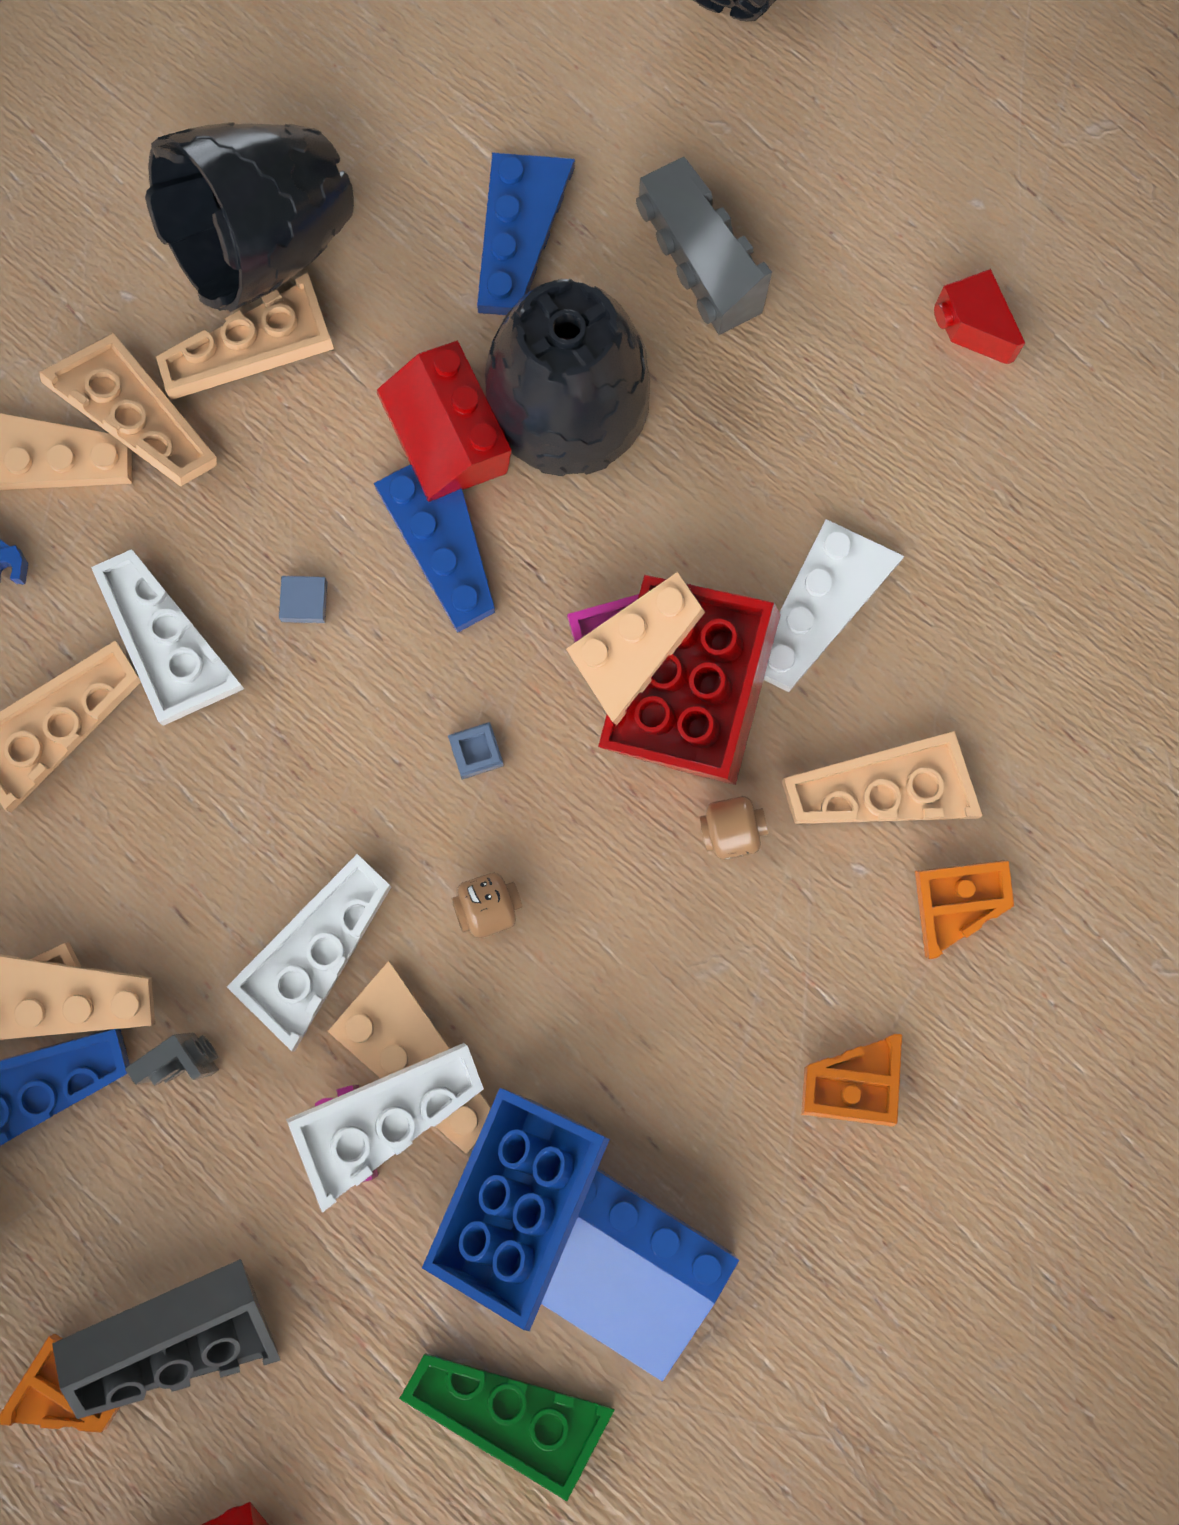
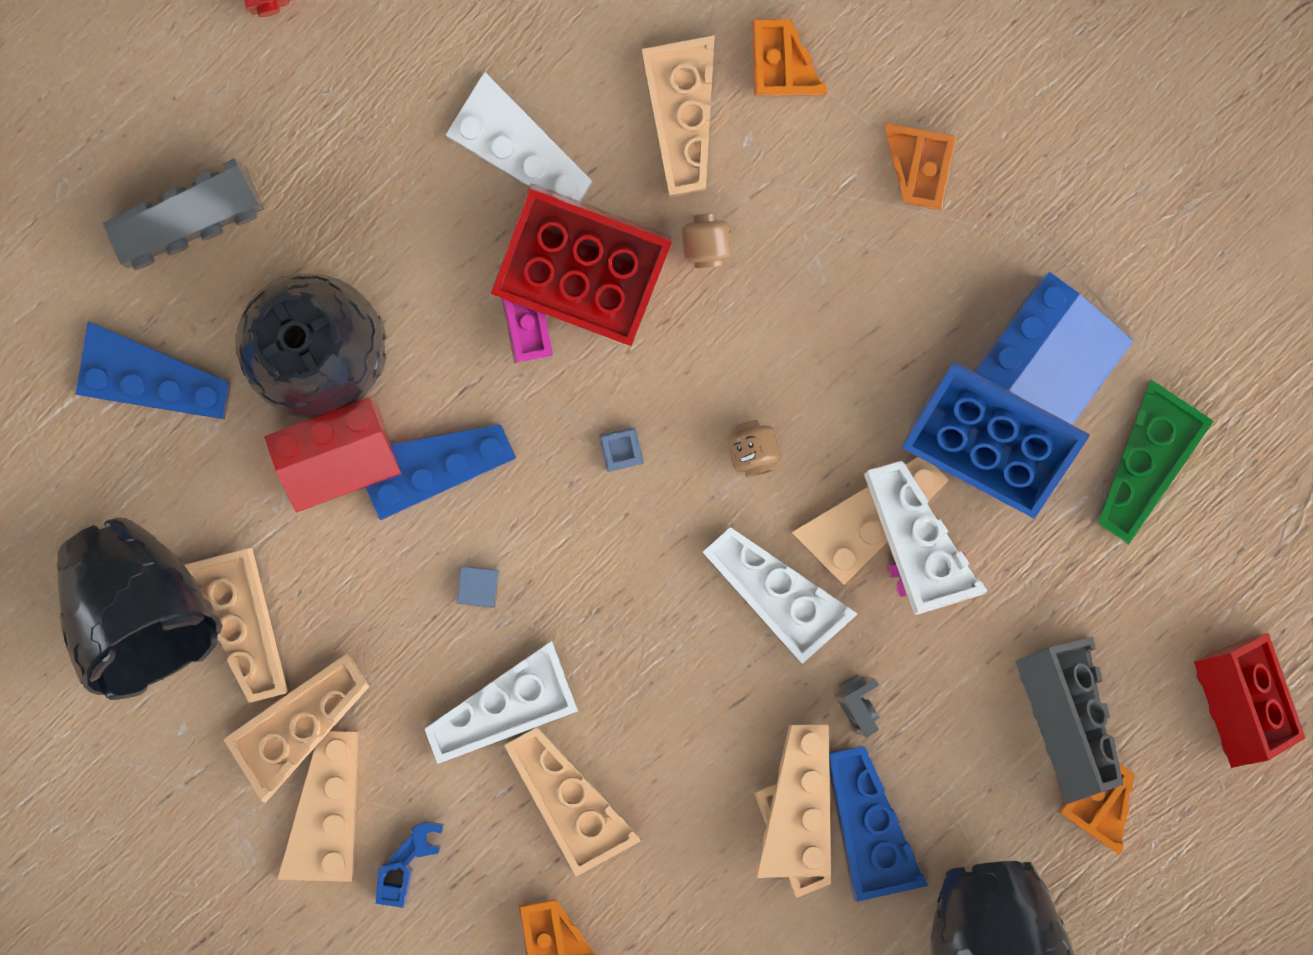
camera: 85 degrees left, 10 degrees up
(633, 644) = (553, 310): light nougat wing -> none

